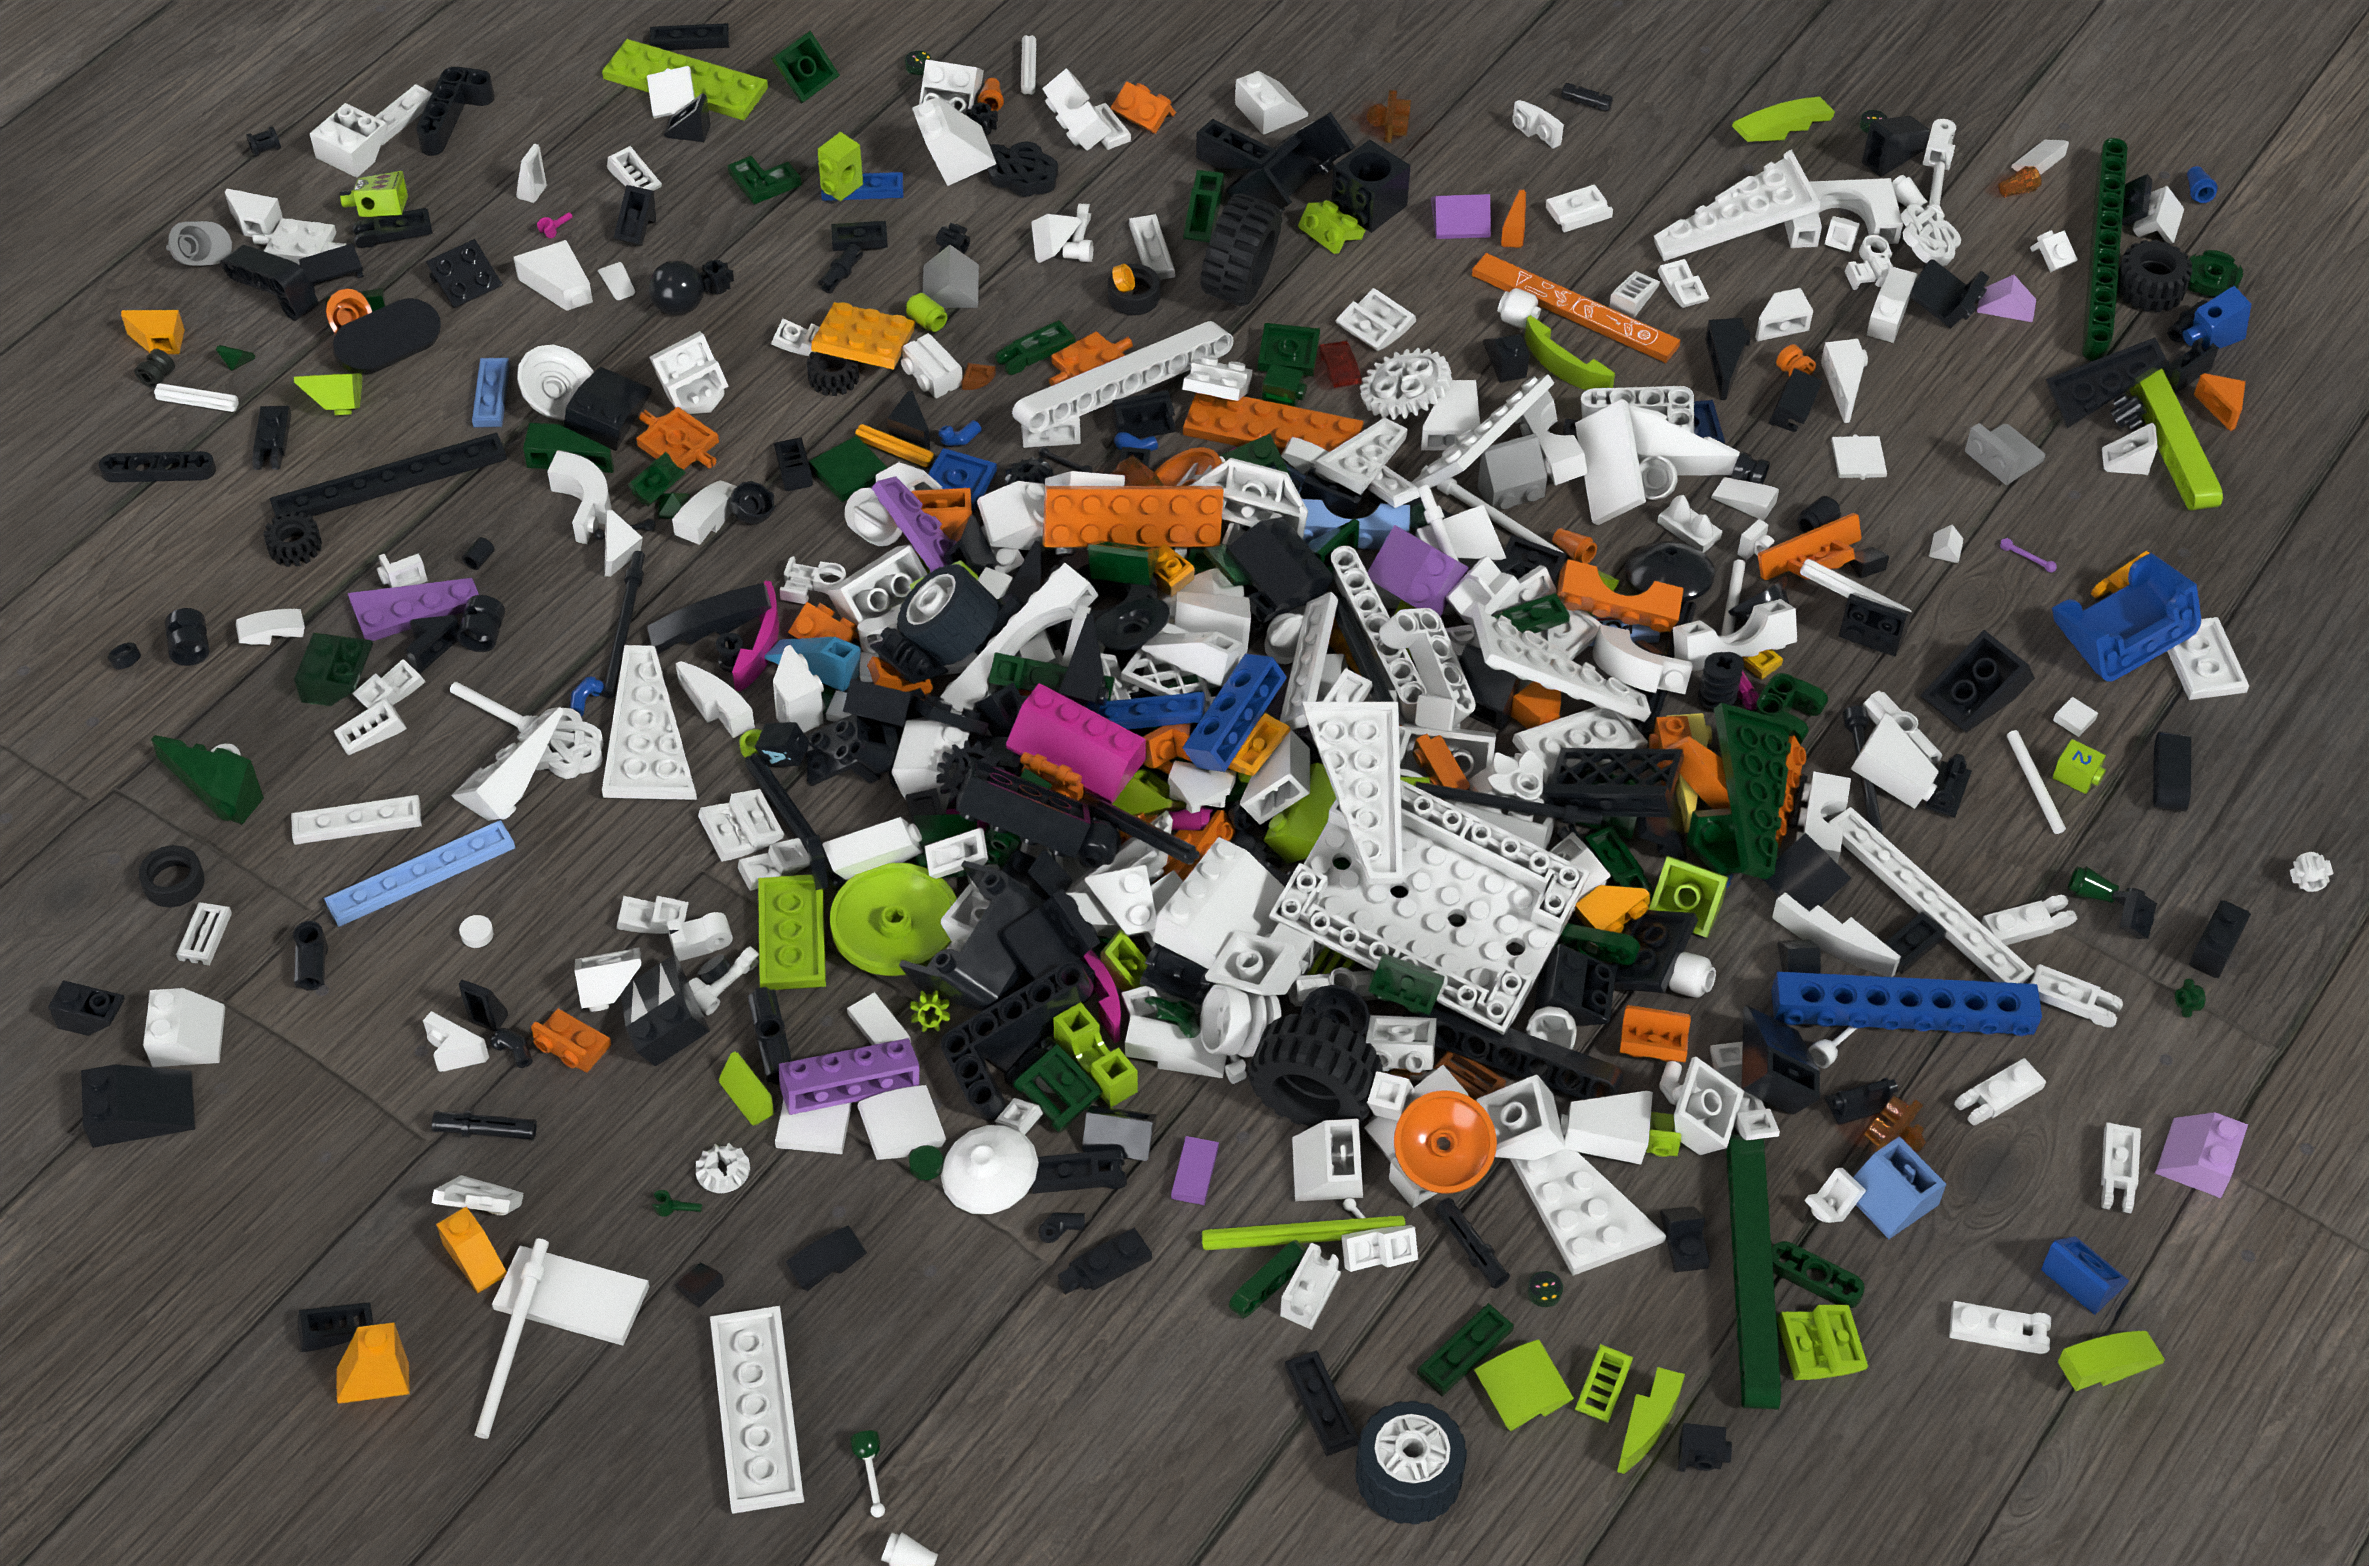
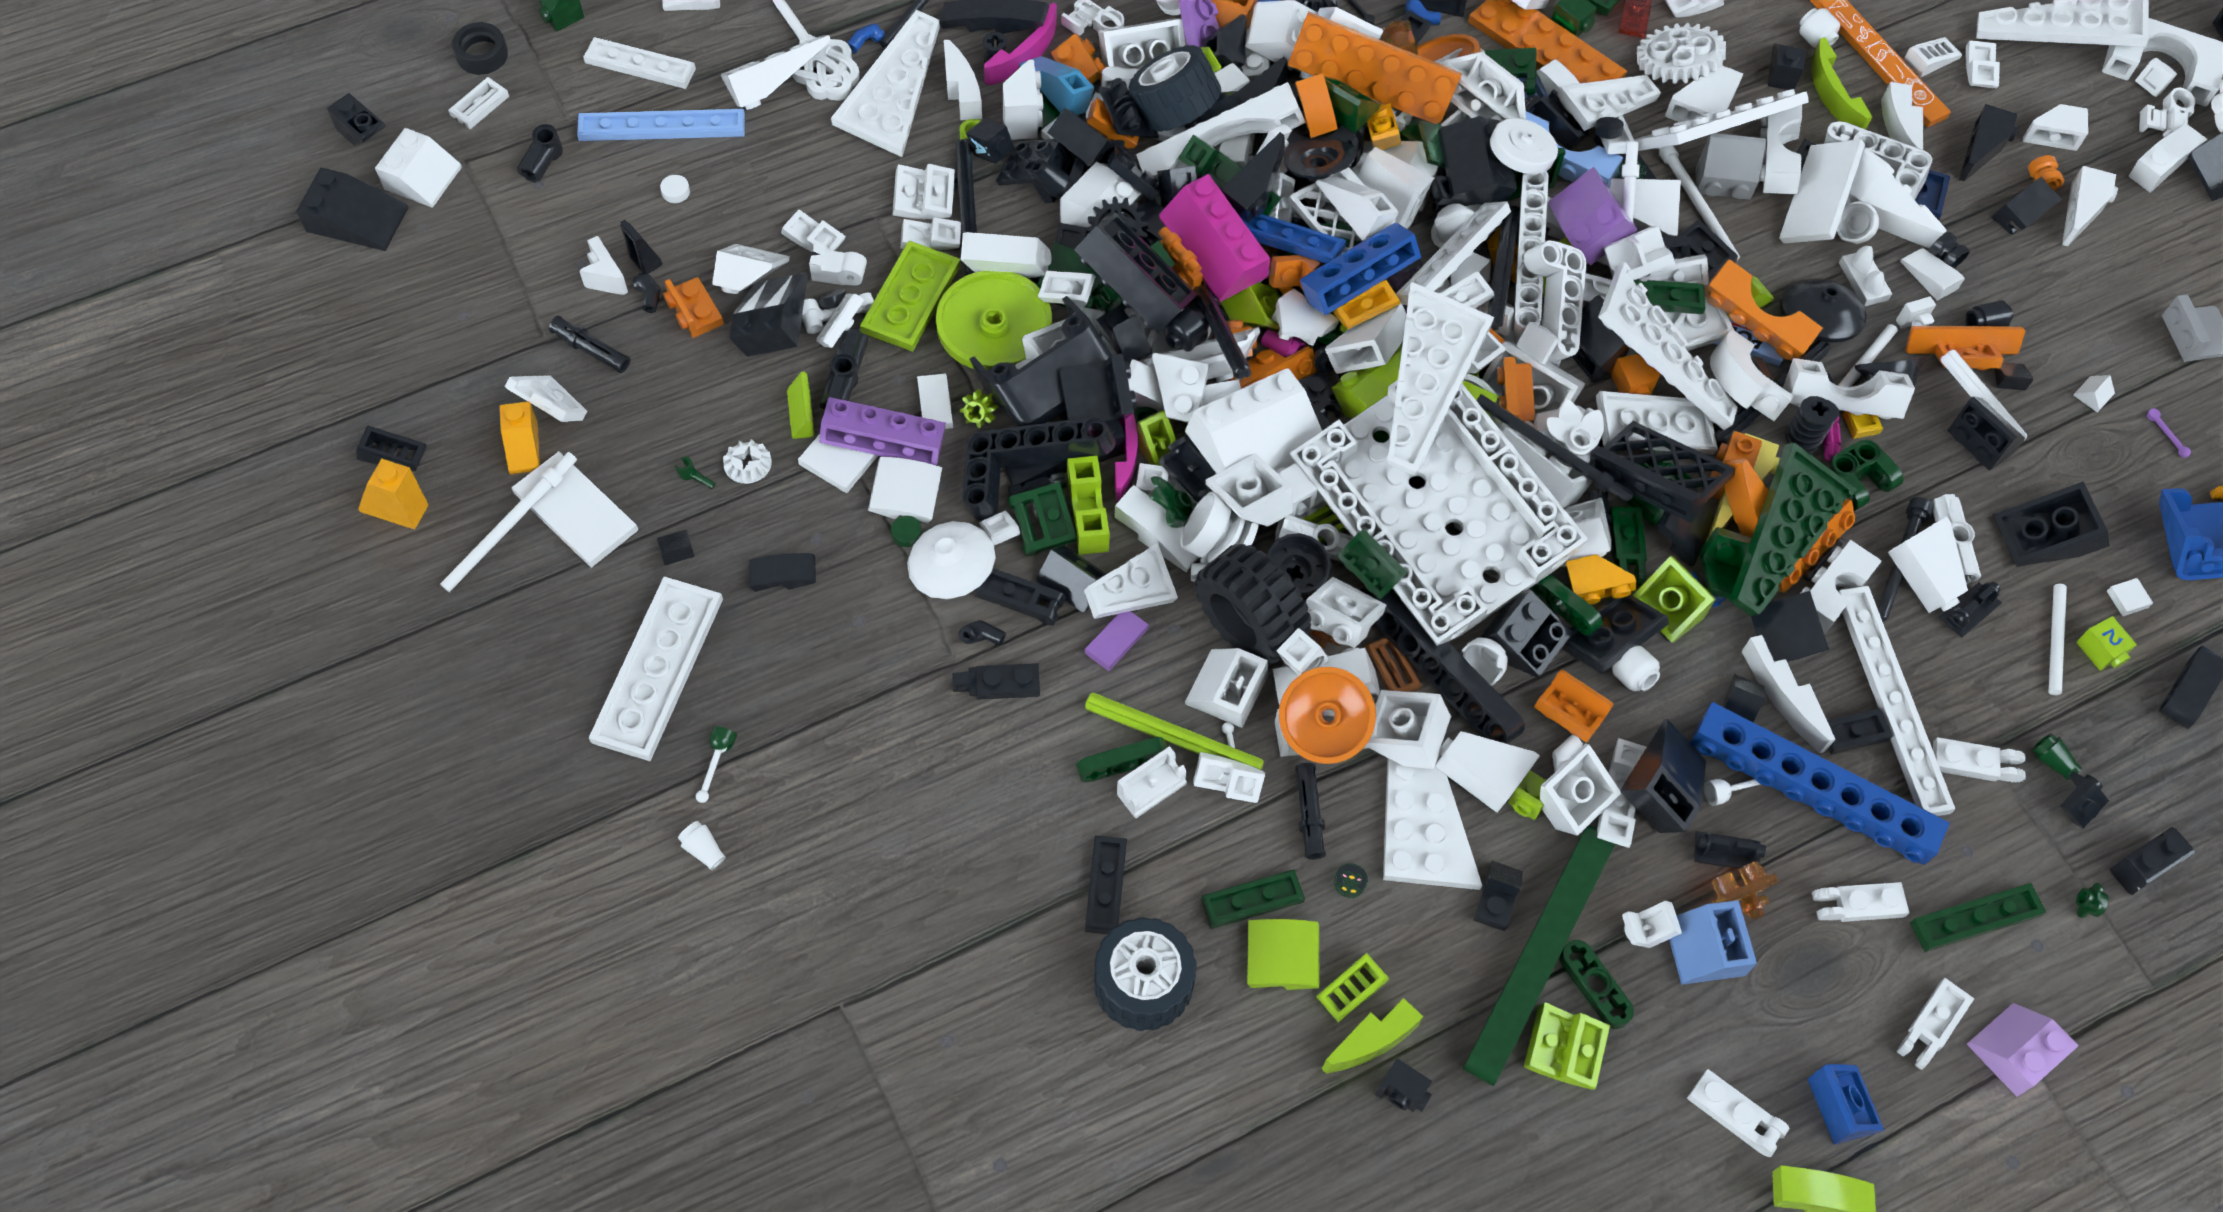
camera: 25 degrees right, 10 degrees up
(737, 986) = (840, 320): none -> white plate
(819, 863) = (954, 249): black plate -> none
(1103, 574) = (1316, 105): none -> orange slope
(1184, 1111) = (1133, 586): none -> white wing
(1320, 532) = (1523, 146): none -> white wheel
(1383, 482) = (1609, 127): none -> black tile
(1576, 546) = (1752, 253): orange cone -> none
(1638, 363) = (1902, 119): none -> white slope
(1859, 457) = (2058, 280): white piece -> none
(2076, 996) = (1982, 848): white hinge -> none
(2104, 1057) = (1978, 917): none -> dark green plate

